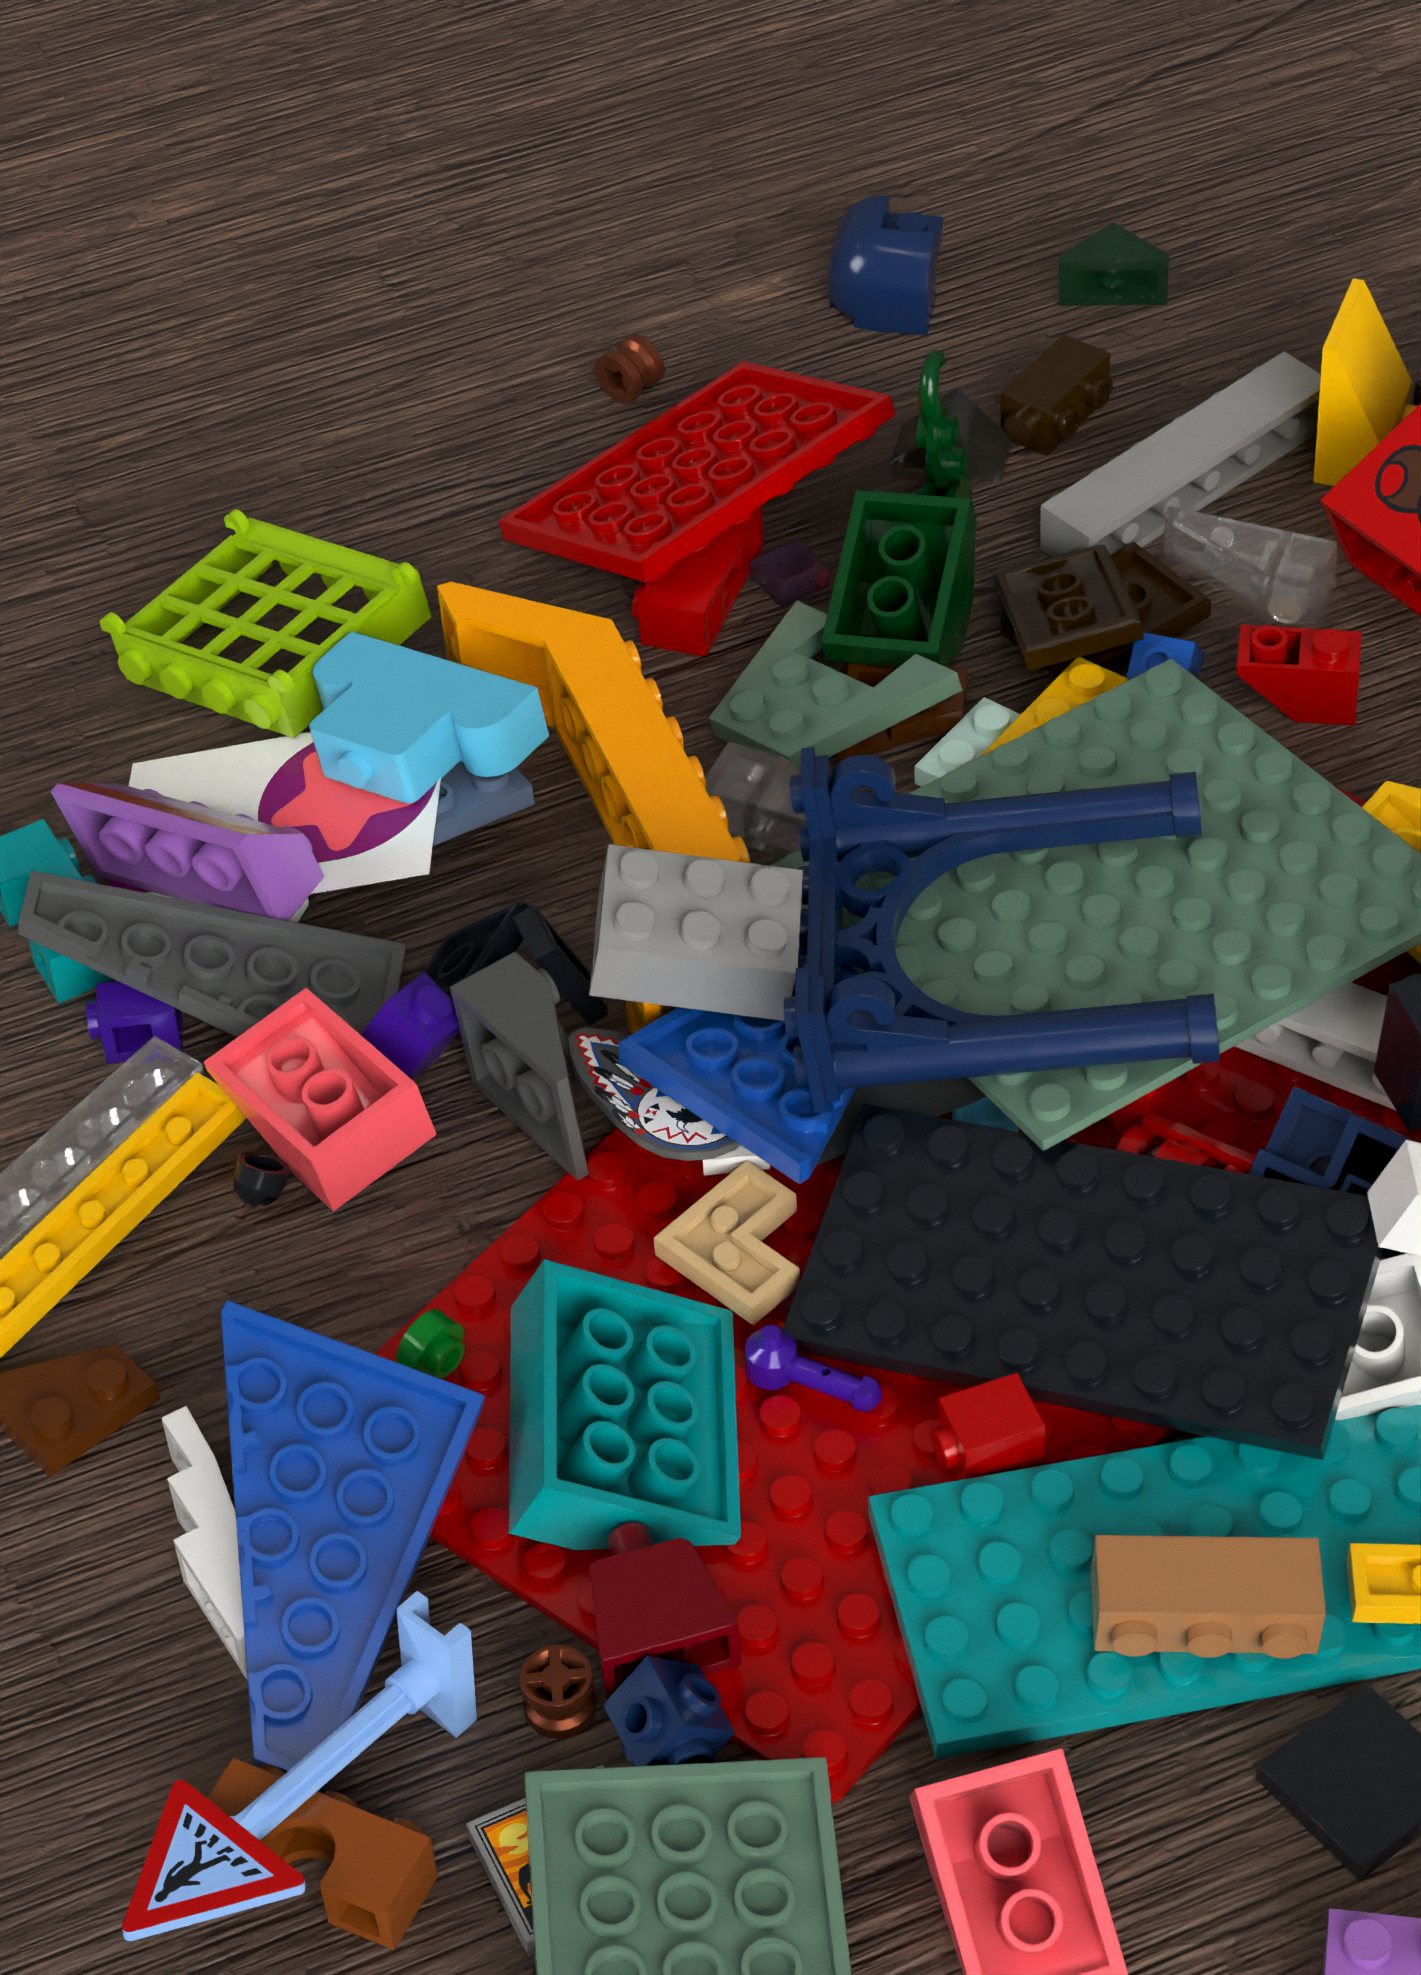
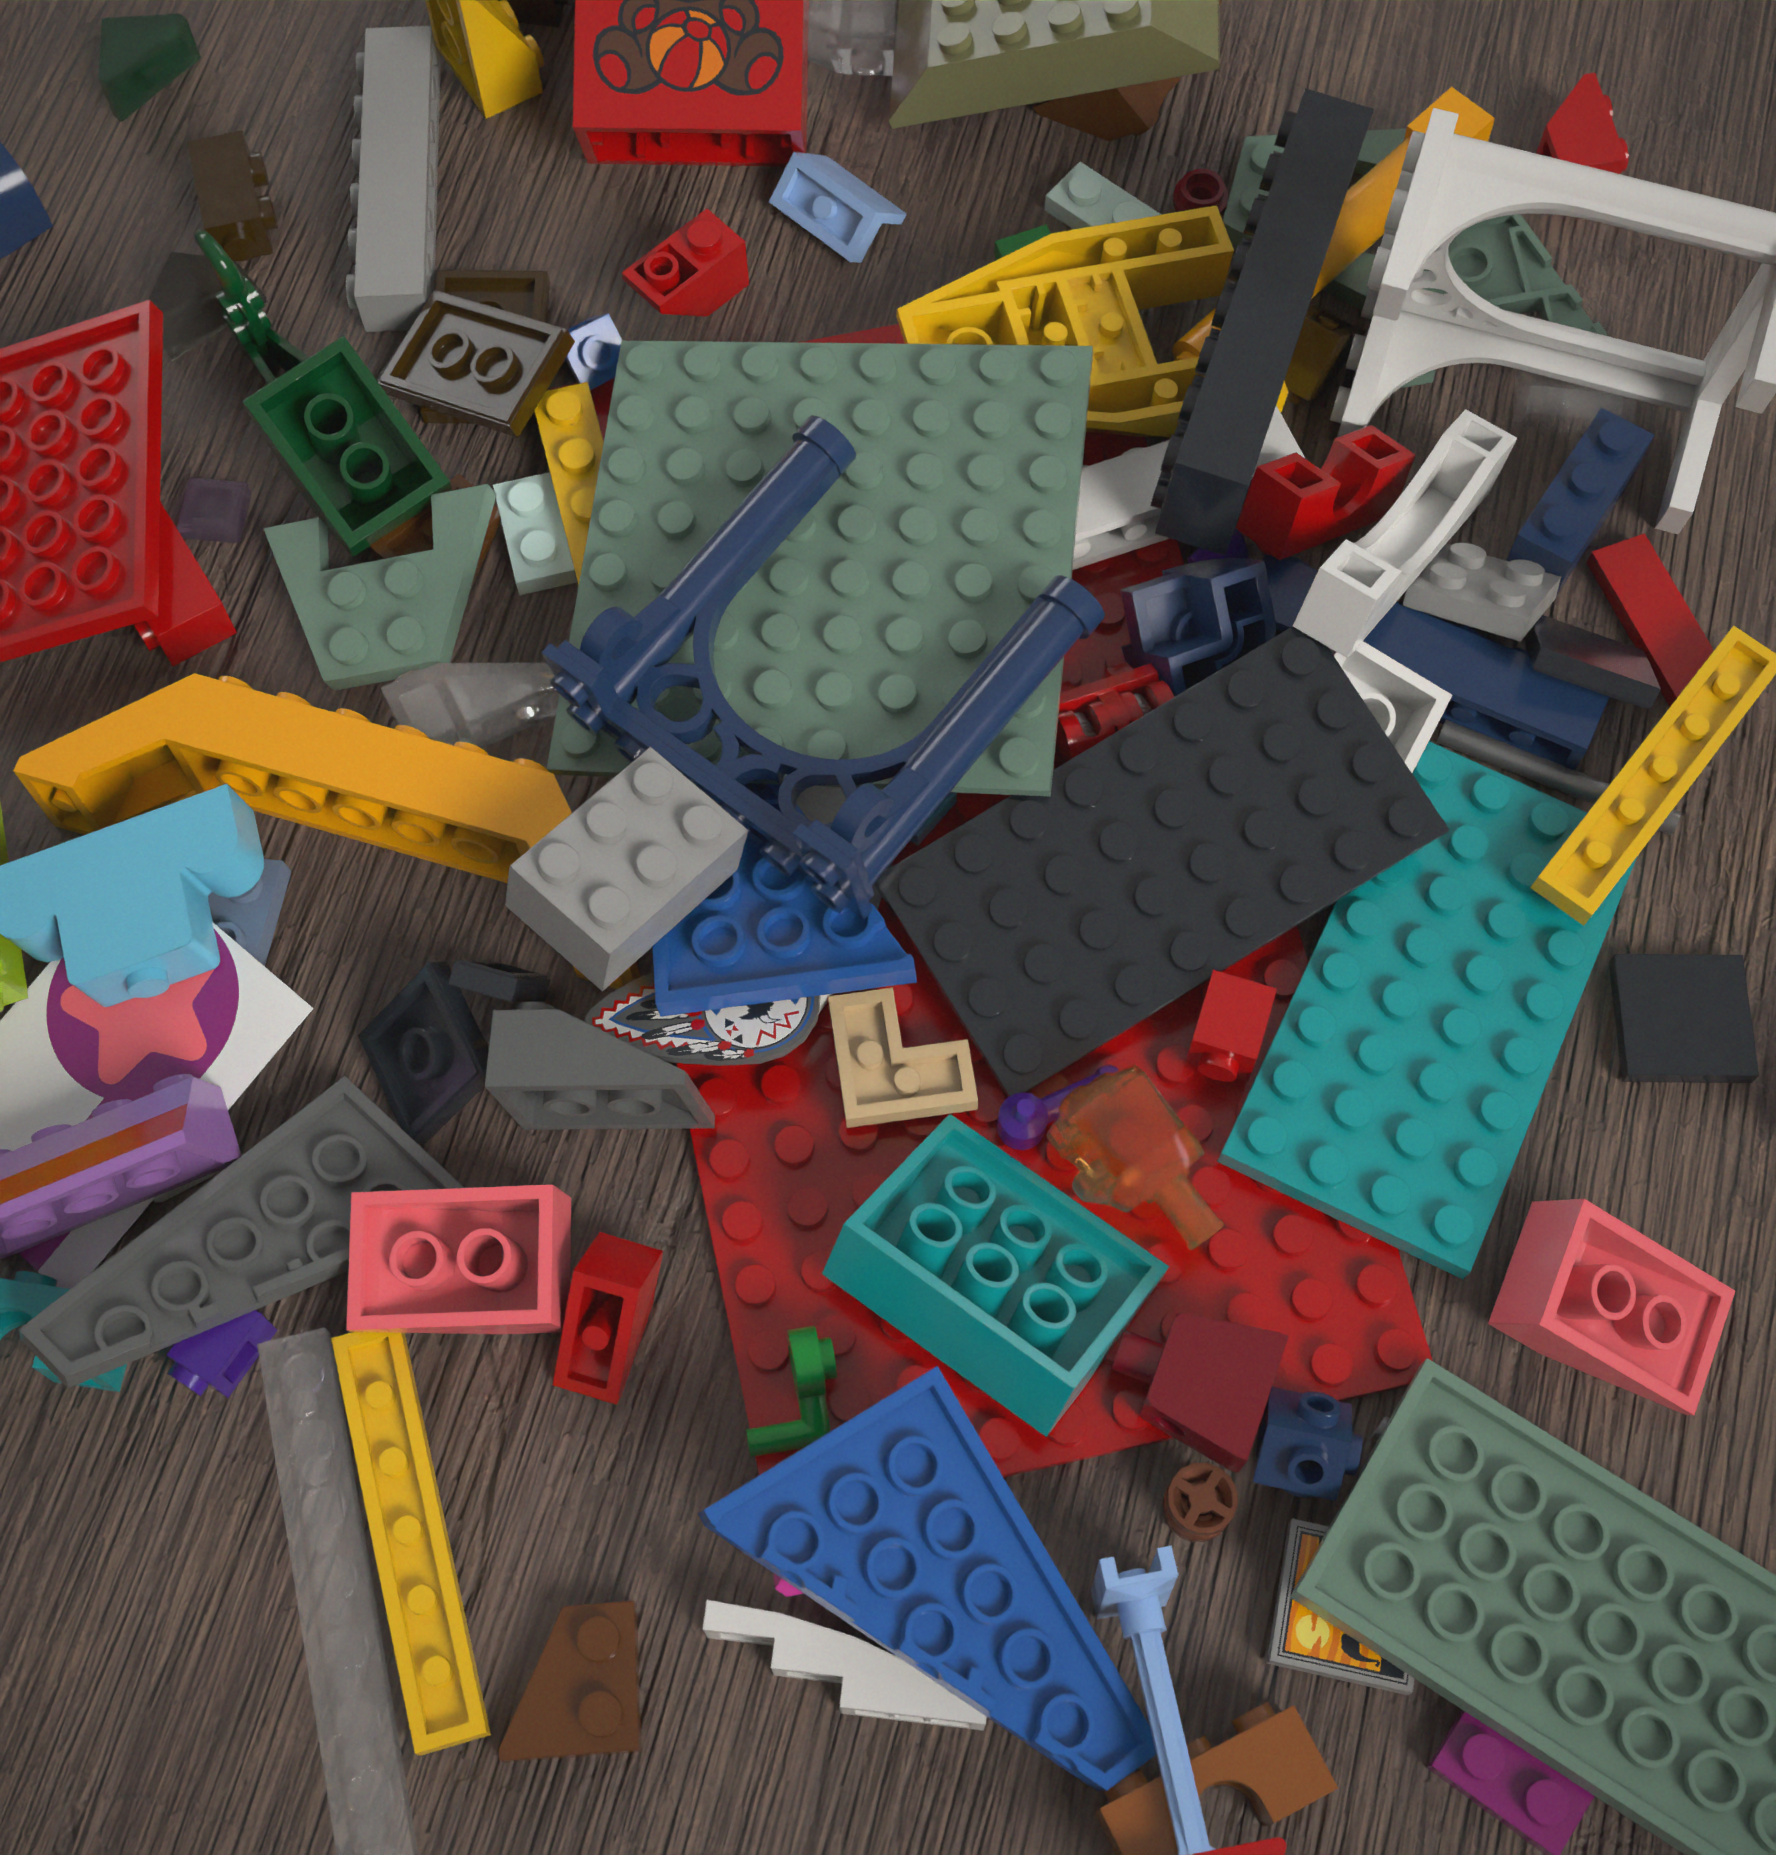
camera: 55 degrees left, 20 degrees up
(259, 1178) = (487, 1365): black hinge -> none
(363, 1214) = (606, 1316): none -> red slope
(414, 1026) = (461, 1139): dark purple brick -> none
(804, 1425) = (1132, 1151): none -> clear orange piece
(1207, 1595) = (1511, 1003): medium nougat brick -> none
(1256, 566) = (548, 218): clear slope -> none

